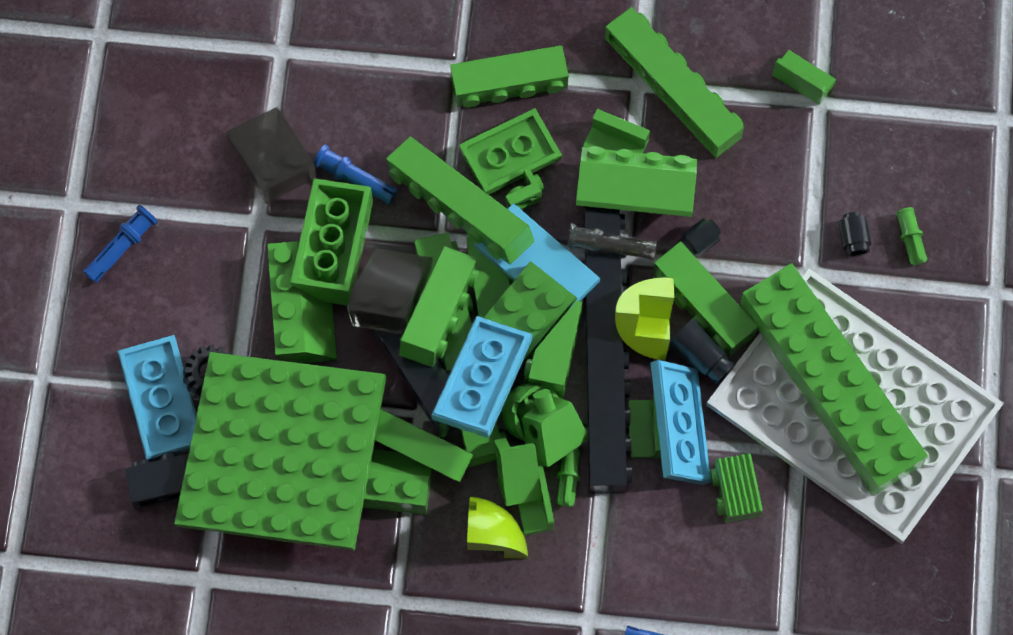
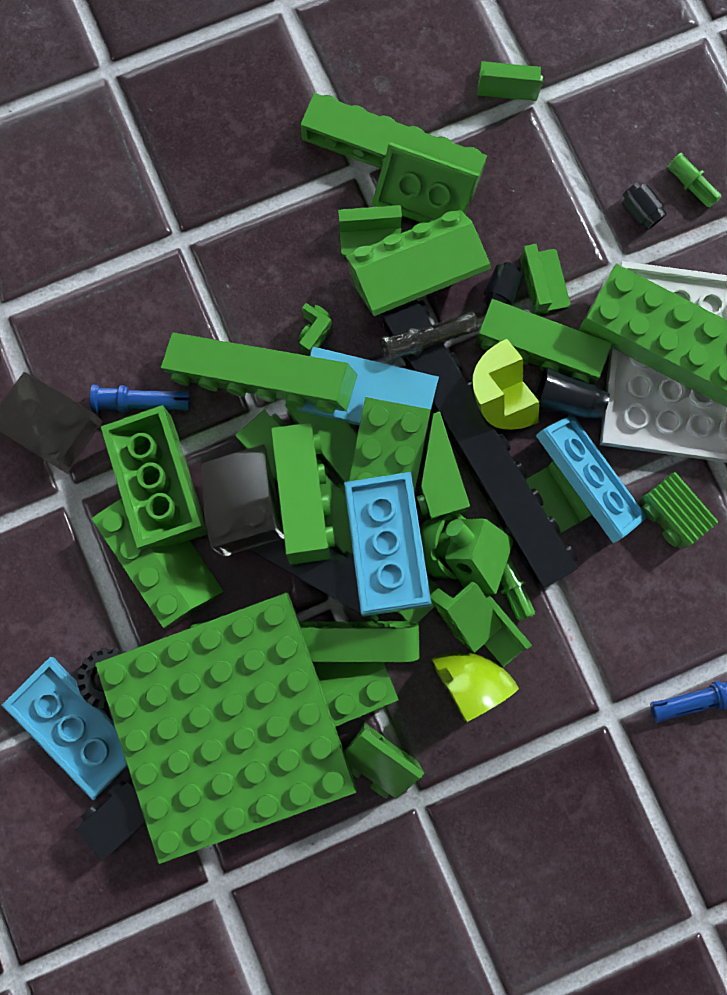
camera: 30 degrees left, 10 degrees up
(384, 544) = (381, 762): none -> bright green slope
(507, 150) = (275, 296): bright green plate -> none
(509, 76) = (234, 222): bright green brick -> none
(677, 124) = (422, 184): none -> bright green tile
(738, 252) = (544, 280): none -> bright green panel

